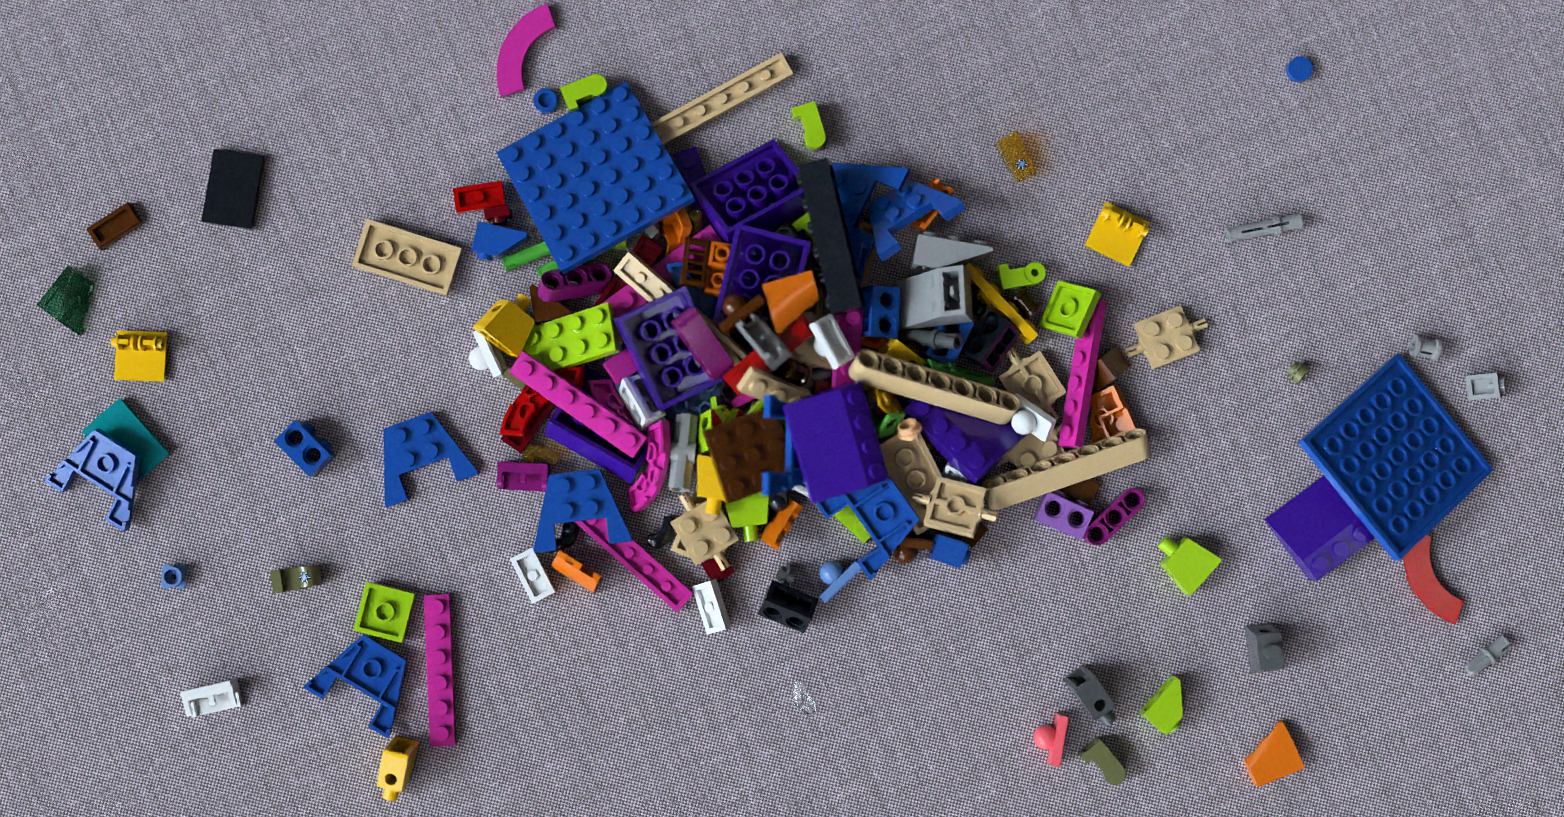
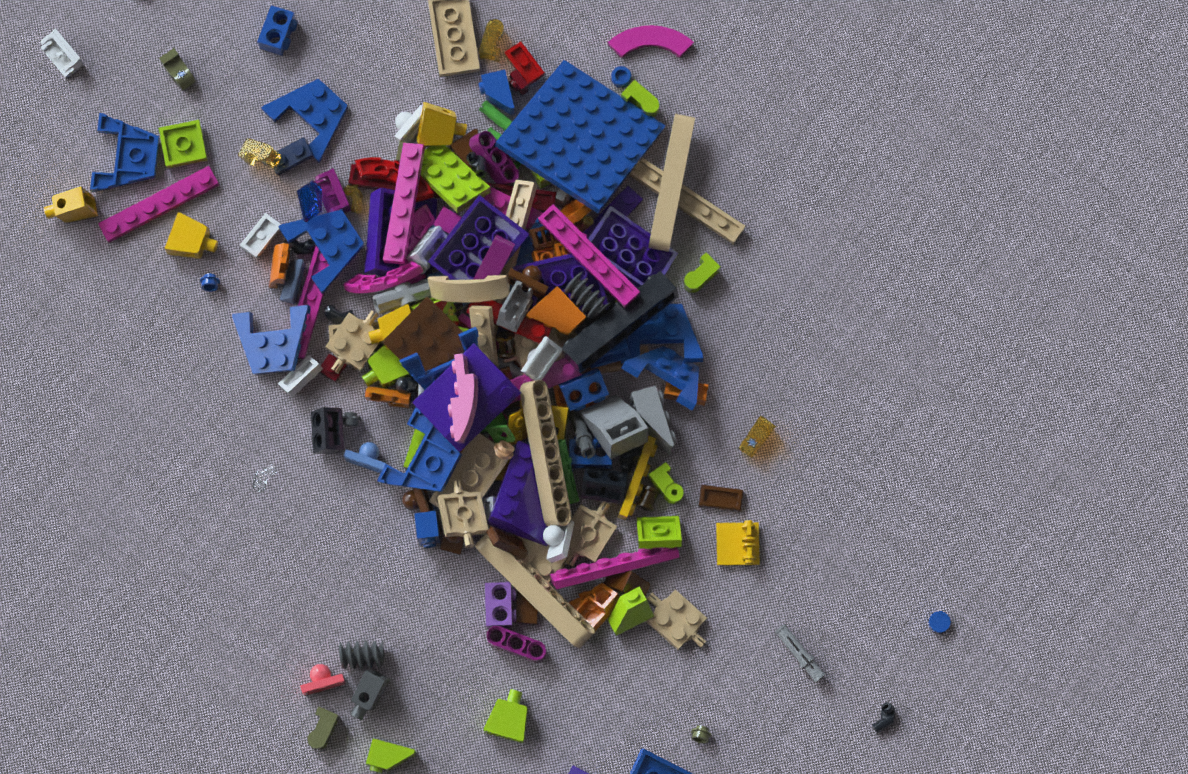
camera: 65 degrees right, 10 degrees down
(428, 213) = (492, 35): none -> clear yellow leg
(433, 537) = (260, 152): none -> clear yellow leg
(458, 500) = (293, 155): none -> dark blue plate
(497, 654) = (189, 238): none -> yellow torso
(509, 506) = (310, 200): none -> clear blue slope
(557, 655) = (209, 282): none -> blue plate
(572, 301) = (477, 162): none -> black arm
(600, 564) = (293, 281): none -> sand blue slope
(668, 624) = (272, 350): none -> wing
(696, 105) = (671, 182): none -> tan beam
(720, 382) = (468, 291): none -> tan slope
(744, 233) = (589, 256): none -> dark pink plate
(789, 258) = (586, 296): none -> dark grey piece
(850, 450) = (463, 407): none -> bright pink slope
(1007, 474) = (507, 542): none -> reddish brown tile
(1047, 684) = (361, 655): none -> dark grey piece
(1060, 227) = (720, 498): none -> reddish brown tile
(1138, 382) = (630, 611): none -> lime slope
(1372, 174) = (887, 718): none -> black arm

